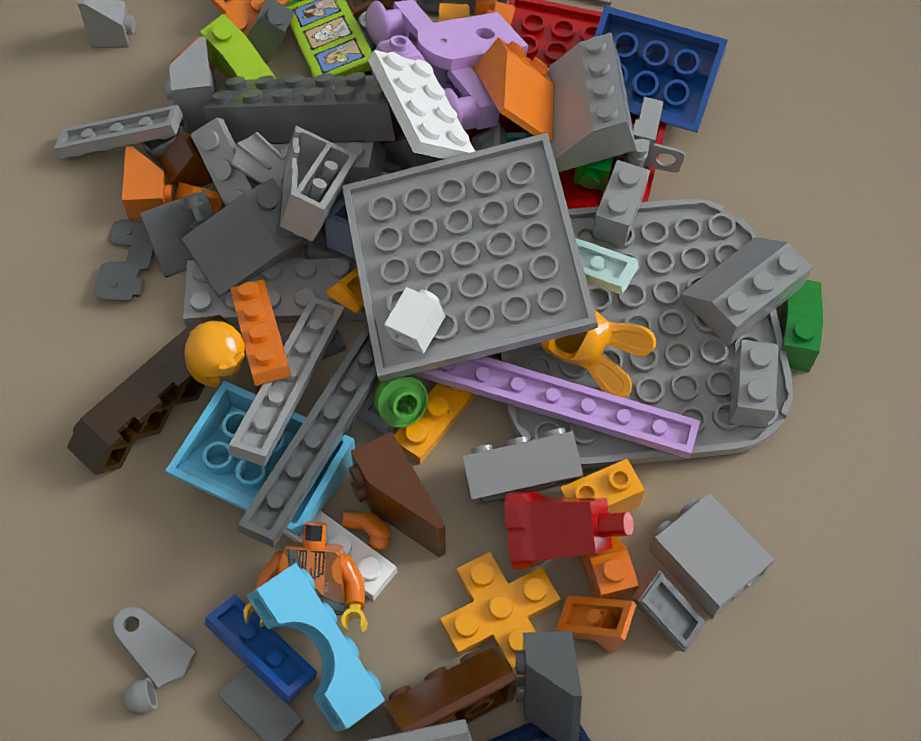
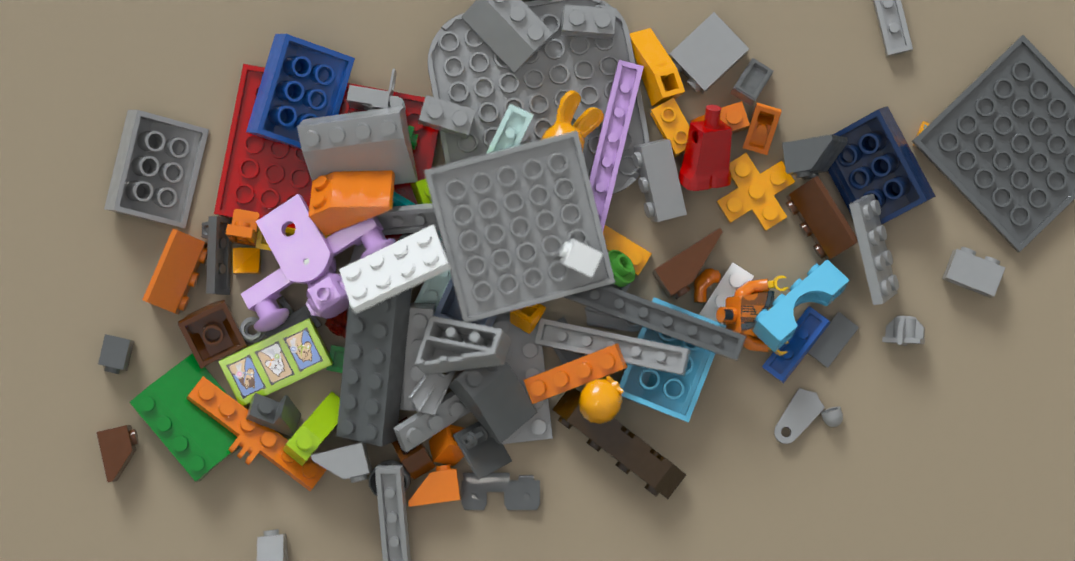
camera: 90 degrees left, 25 degrees up
(691, 477) = (659, 71): none -> light orange slope

